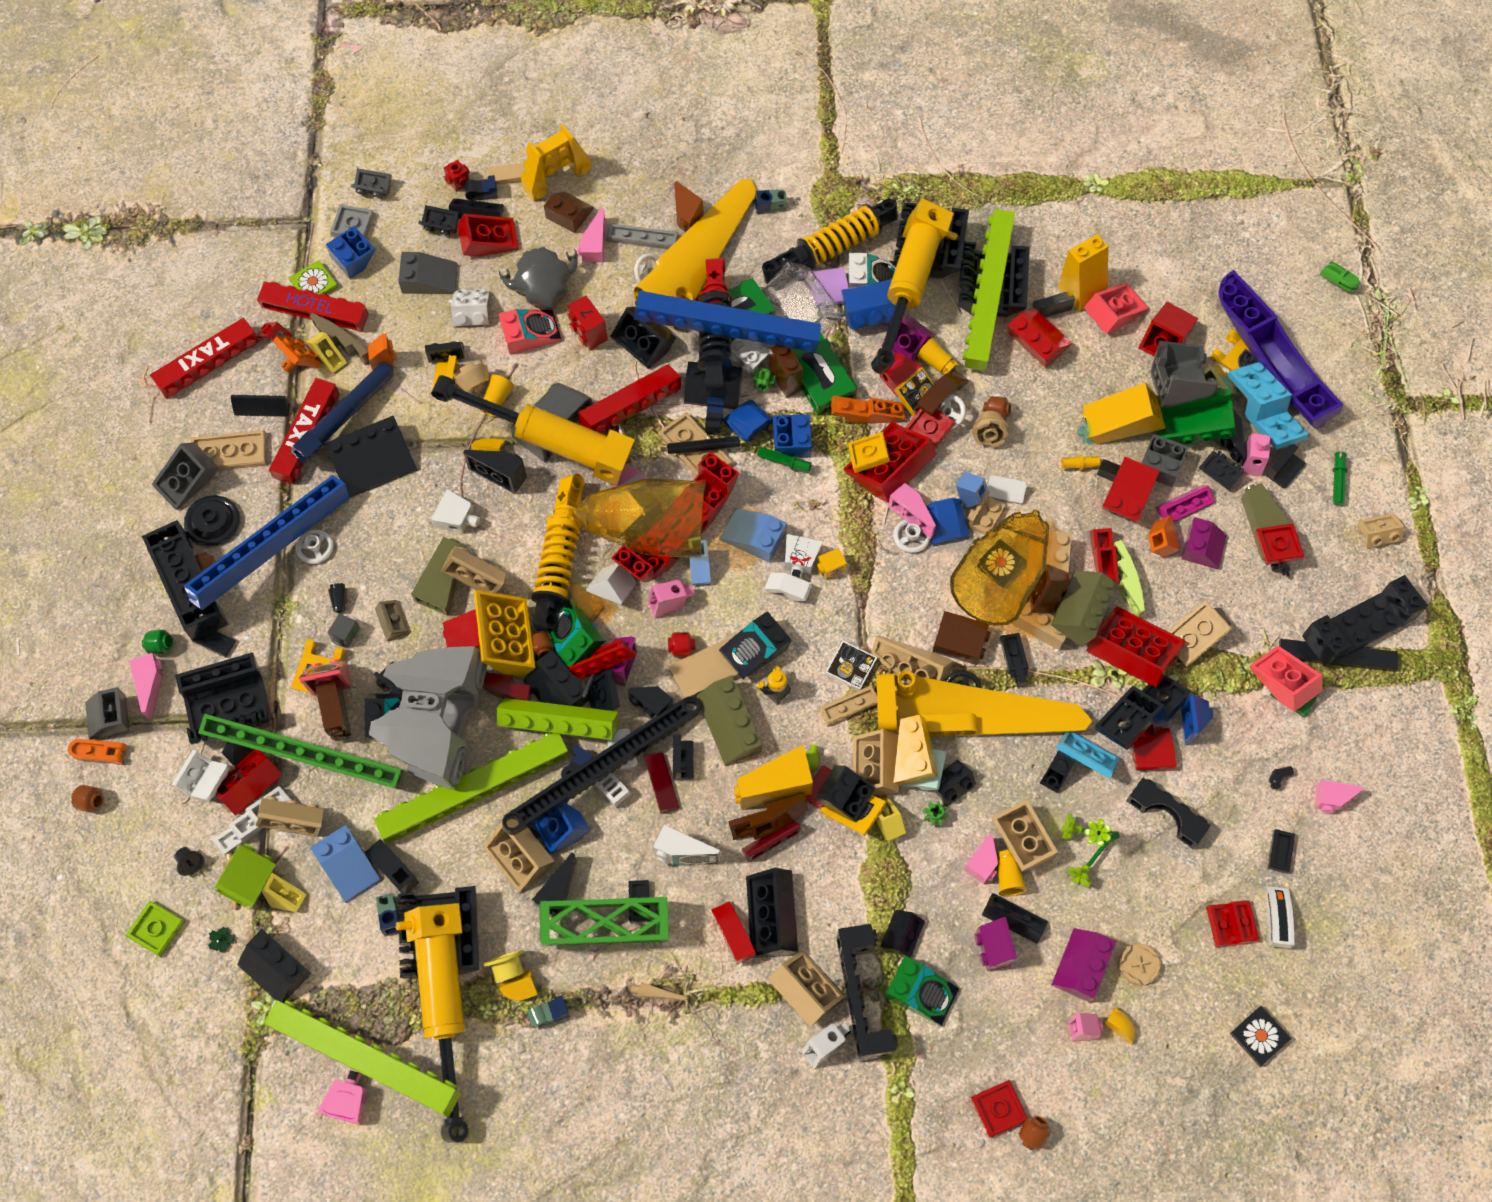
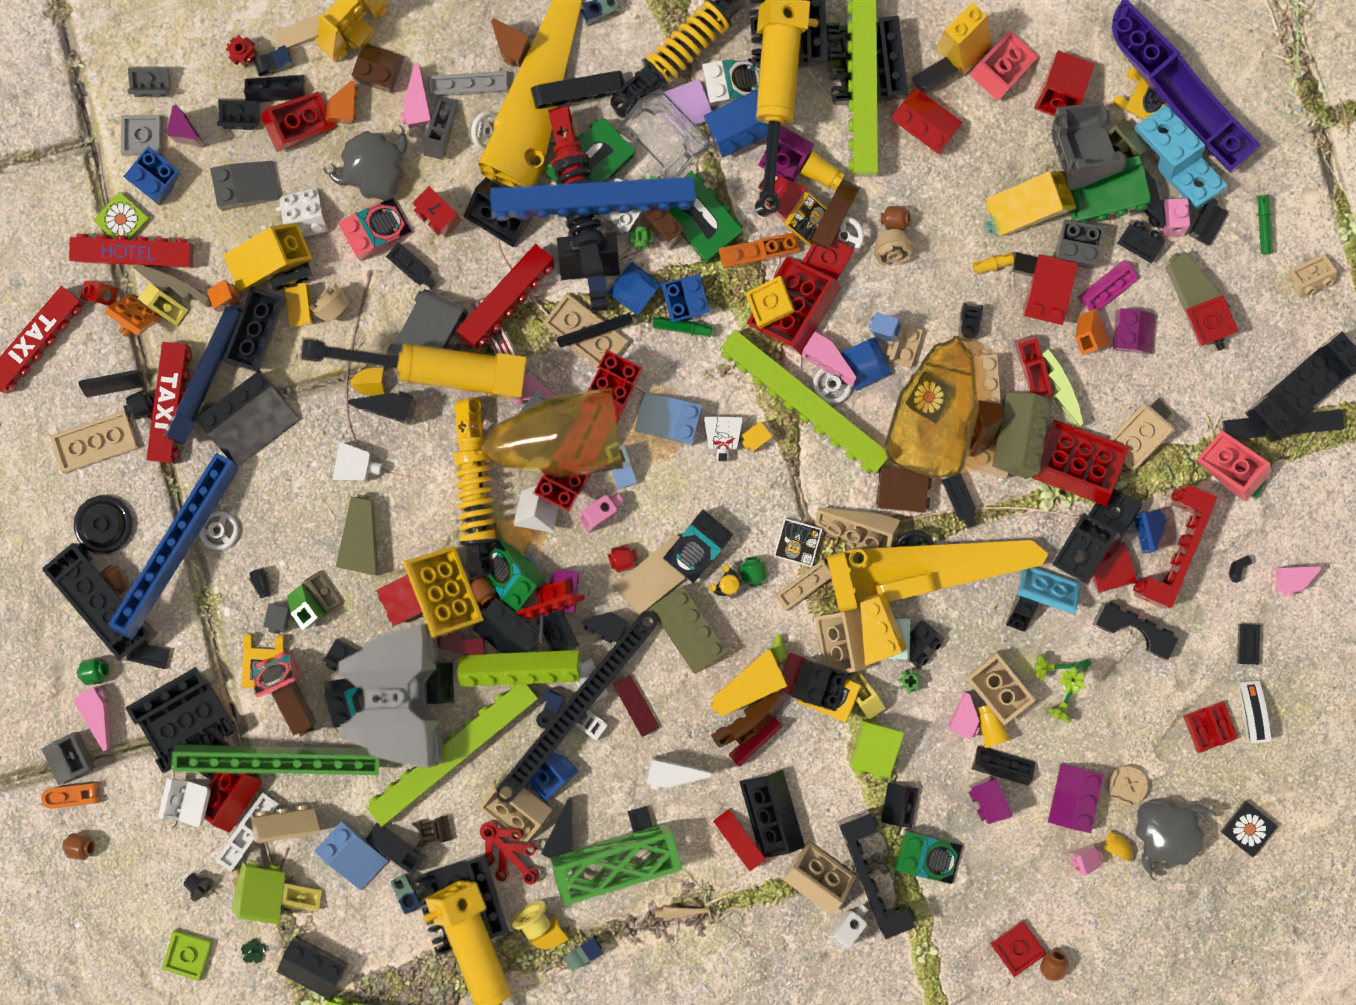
camera: 15 degrees left, 20 degrees up
(184, 474) = (59, 483): dark grey slope -> none
(277, 426) = (139, 405): none -> black head
(372, 627) = (304, 607): none -> bright green slope
(387, 221) = (181, 128): none -> magenta slope
(398, 384) = (254, 330): none -> black slope
(431, 322) = (267, 255): none -> yellow slope
(440, 859) = (440, 827): none -> dark brown piece
(473, 571) = (394, 529): tan slope -> none
(479, 722) = (440, 684): none -> black panel
(498, 391) = (360, 318): yellow plant -> none
(498, 894) = (507, 850): none -> red plant
(528, 229) = (341, 105): none -> orange slope
(553, 364) = (410, 265): none -> black hinge
(560, 181) = (359, 35): none -> yellow brick
(607, 264) = (440, 128): none -> dark grey slope
(683, 758) = (652, 678): black bracket -> none
(734, 252) = (577, 89): none -> black beam
(789, 585) = (717, 471): white slope -> none
(803, 680) = (753, 571): none -> green head
(883, 544) = (804, 402): none -> lime brick
(889, 869) = (875, 750): none -> lime slope
(1006, 489) = (920, 312): white slope -> none
(1051, 504) = (970, 317): none -> black piece
(1177, 1018) = (1169, 833): none -> dark grey piece
(1243, 702) = (1200, 505): none -> red plate

